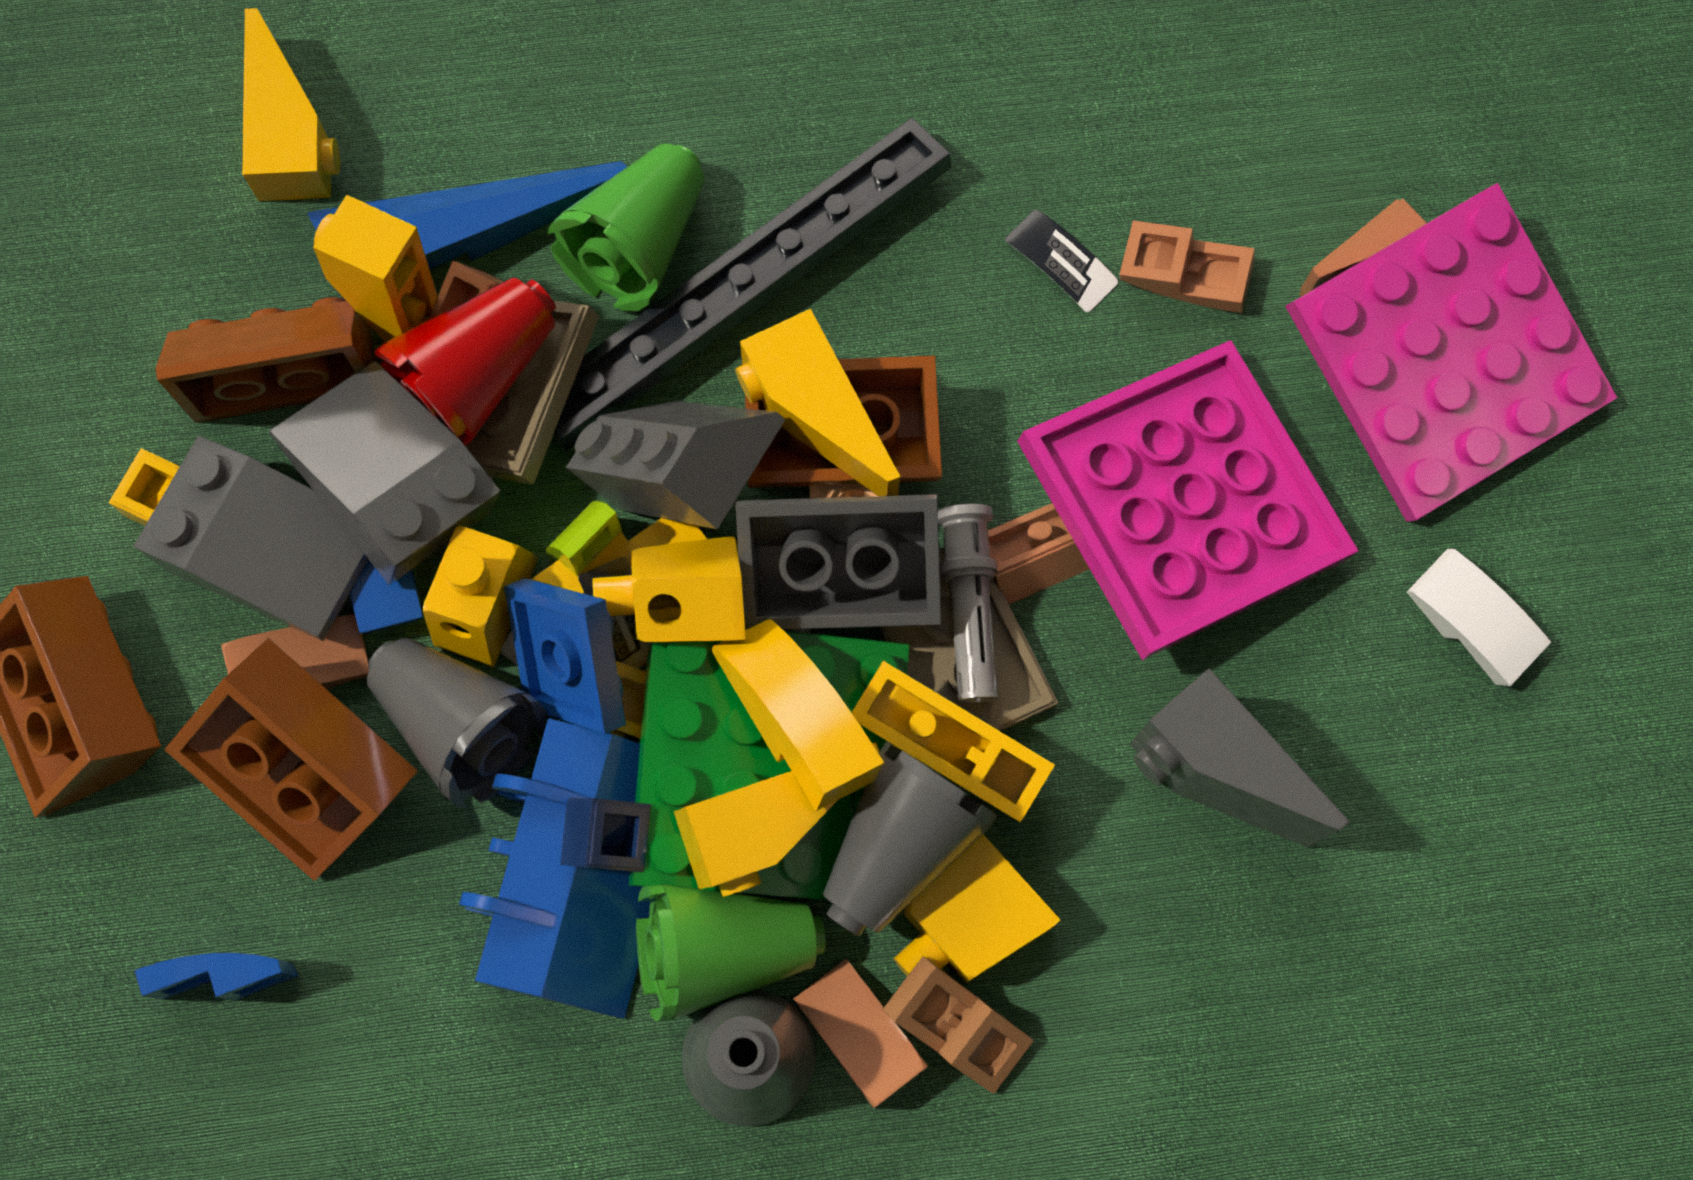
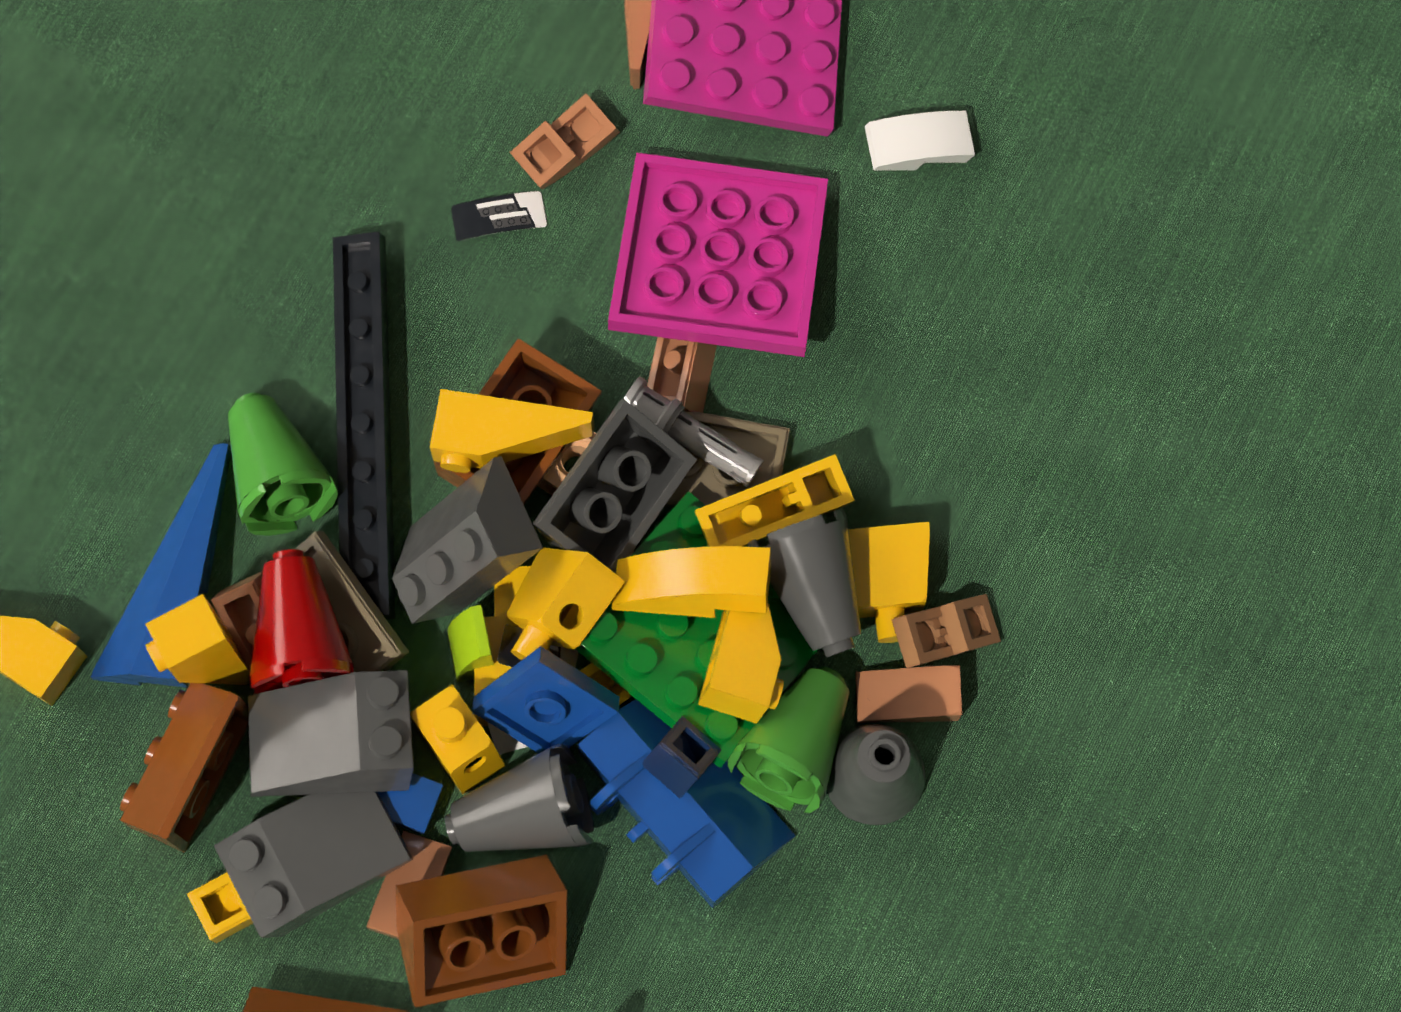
camera: 55 degrees left, 0 degrees up
(1226, 760) = (900, 352): dark grey slope -> none

